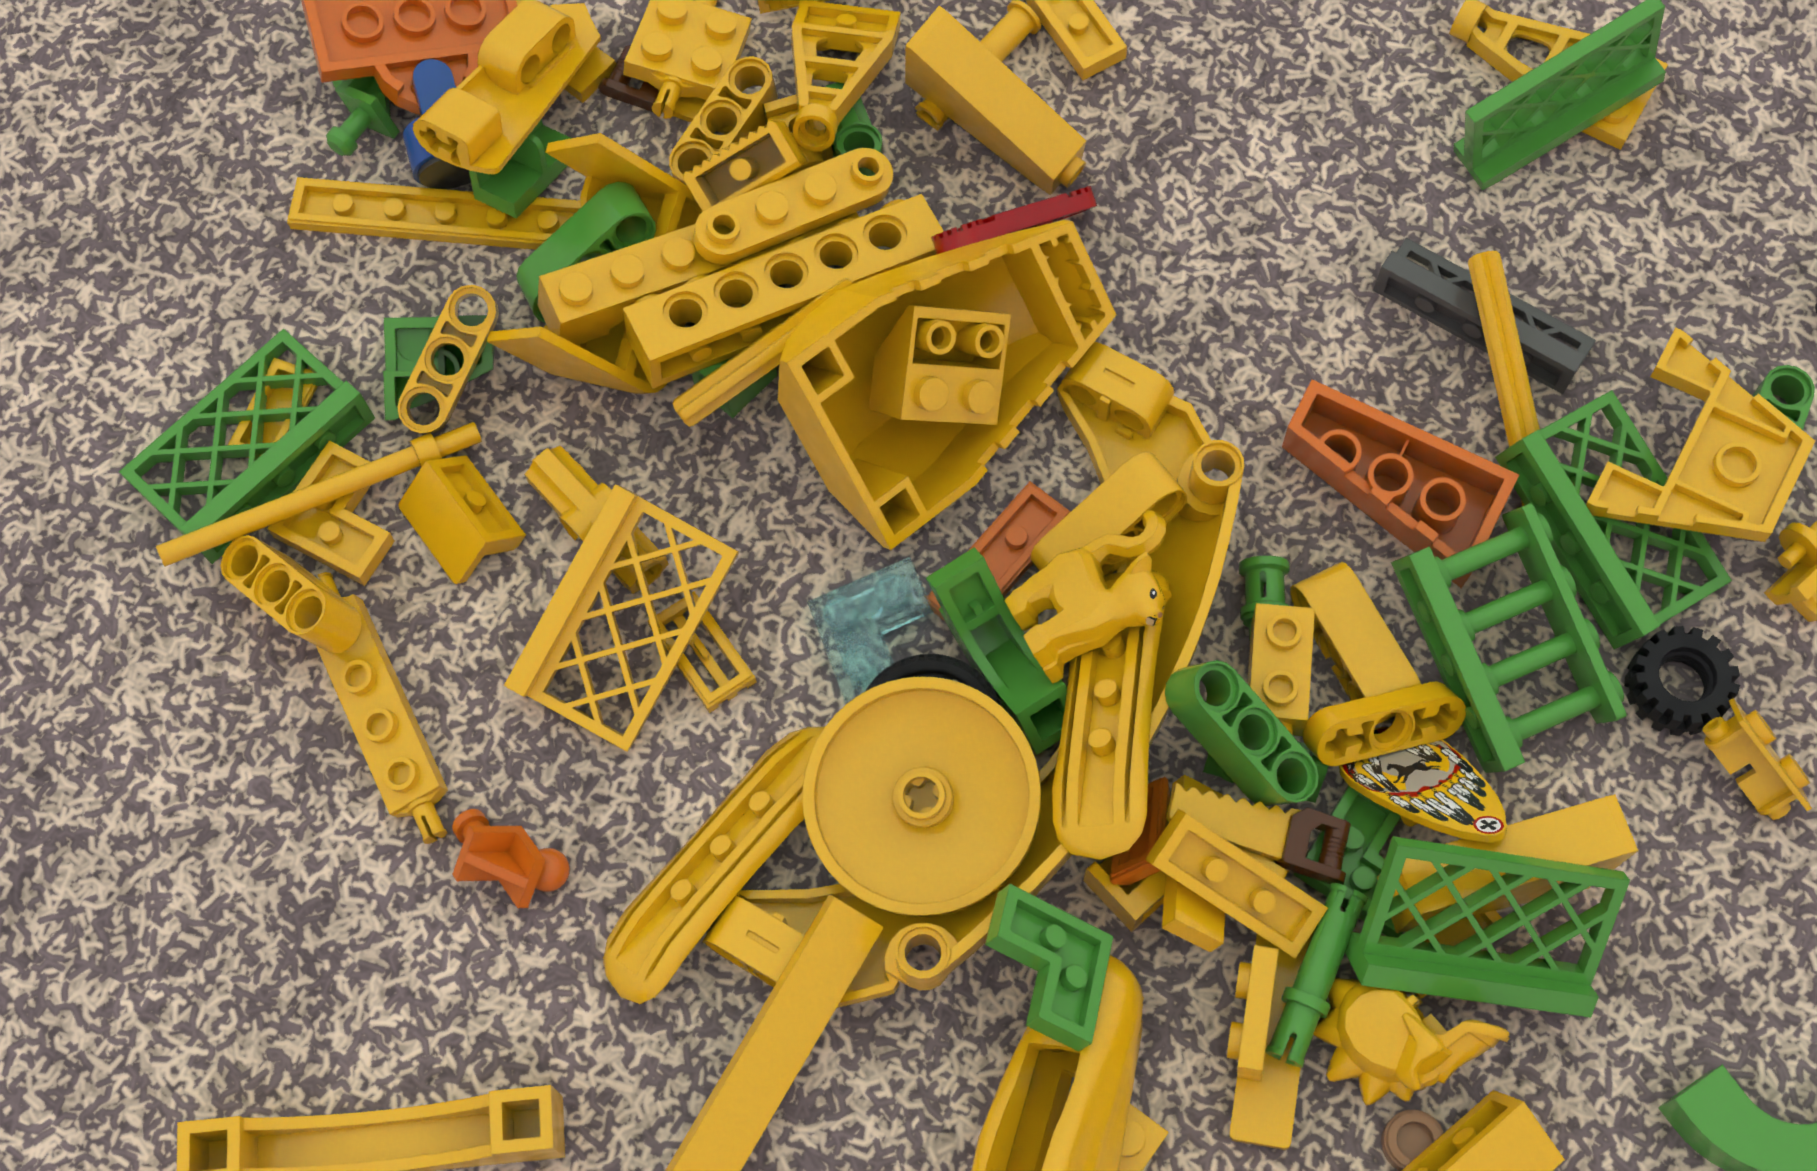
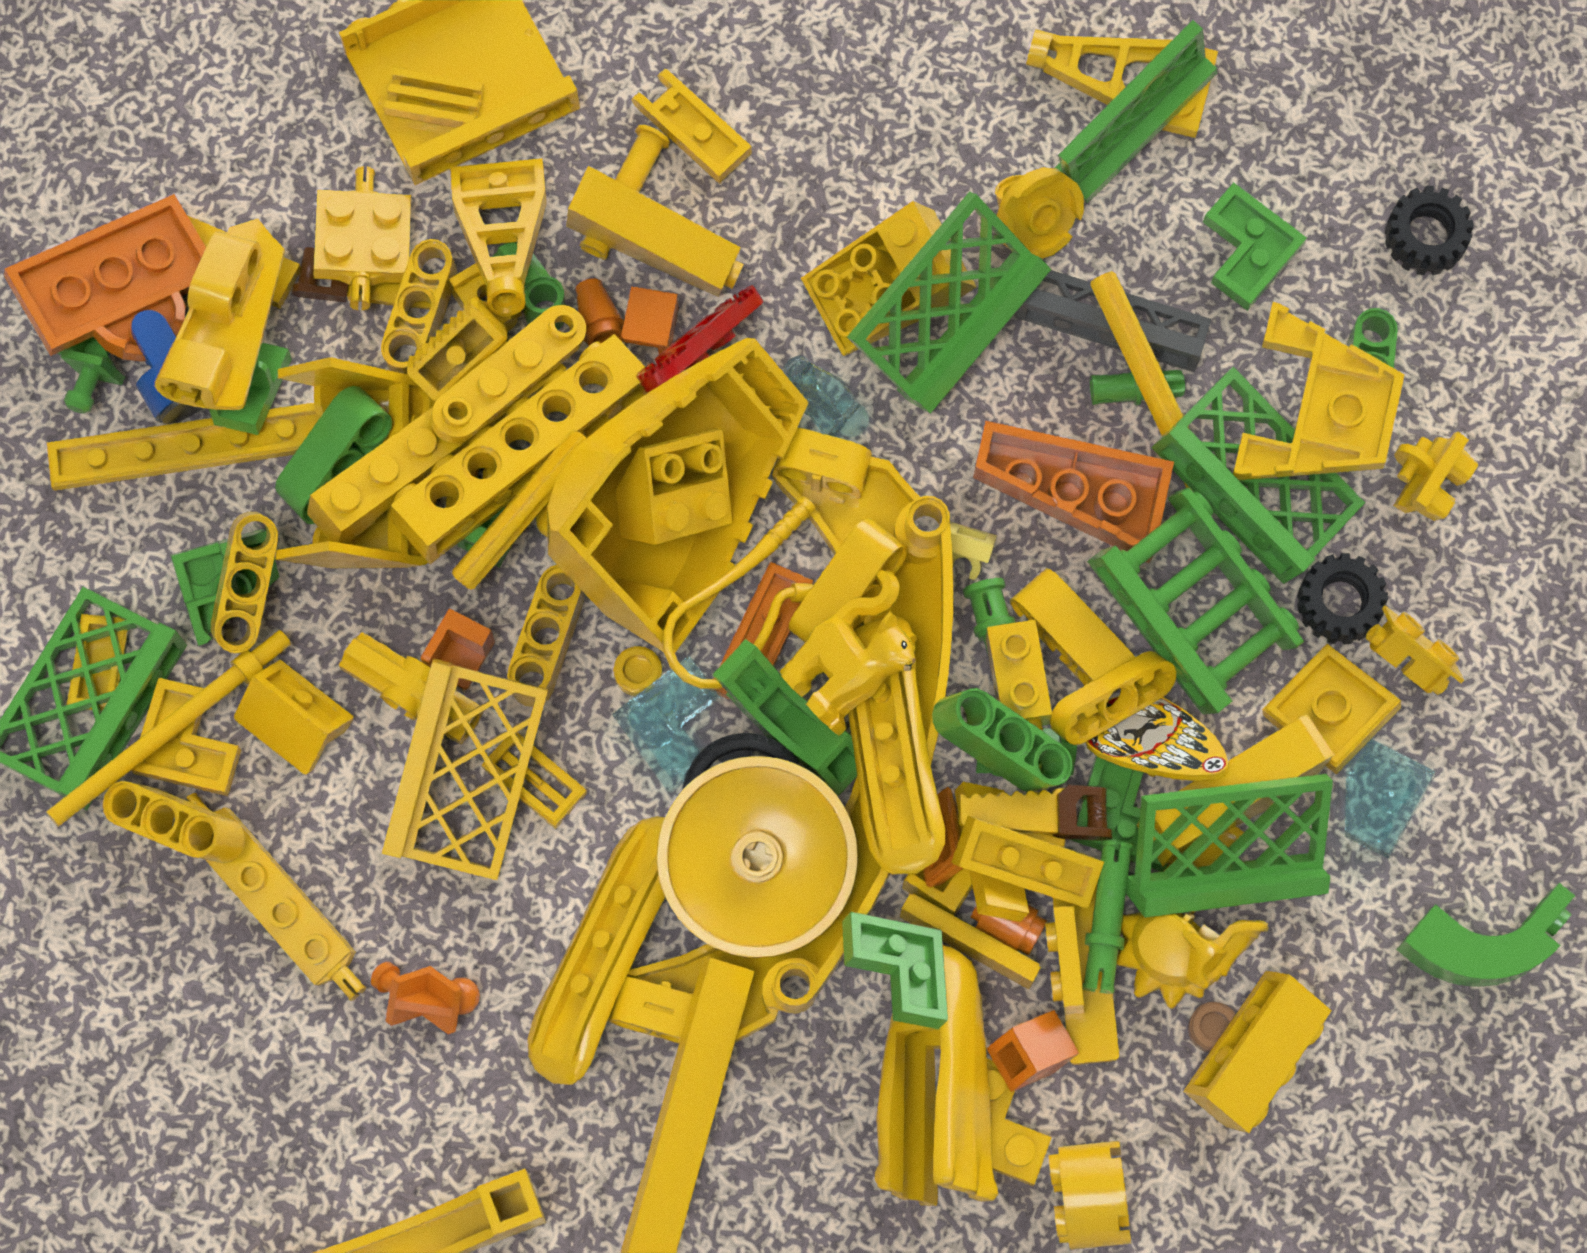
camera: 20 degrees left, 5 degrees up
(664, 482) = (460, 643): none -> orange panel
(759, 475) = (546, 613): none -> yellow beam
(848, 560) = (636, 669): none -> yellow tile
(914, 175) = (598, 311): none -> orange cone
(969, 191) = (650, 318): none -> orange panel
(1026, 460) = (766, 546): none -> yellow piece
(1140, 324) = (829, 399): none -> clear light blue piece
(1148, 962) = (971, 941): none -> yellow tile
(1187, 1109) = (1032, 1050): none -> orange brick
(1197, 965) = (1012, 933): none -> orange brick
(1242, 214) = (862, 271): none -> yellow slope
(1261, 517) = (972, 545): none -> light yellow tile
(1314, 286) = (970, 324): none -> bright green fence
(1427, 180) = (1040, 209): none -> yellow tile
(1480, 390) = (1125, 389): none -> bright green axle
(1657, 794) = (1339, 700): none -> yellow tile
(1672, 272) = (1262, 243): none -> bright green plate
(1680, 916) = (1382, 796): none -> clear light blue wing

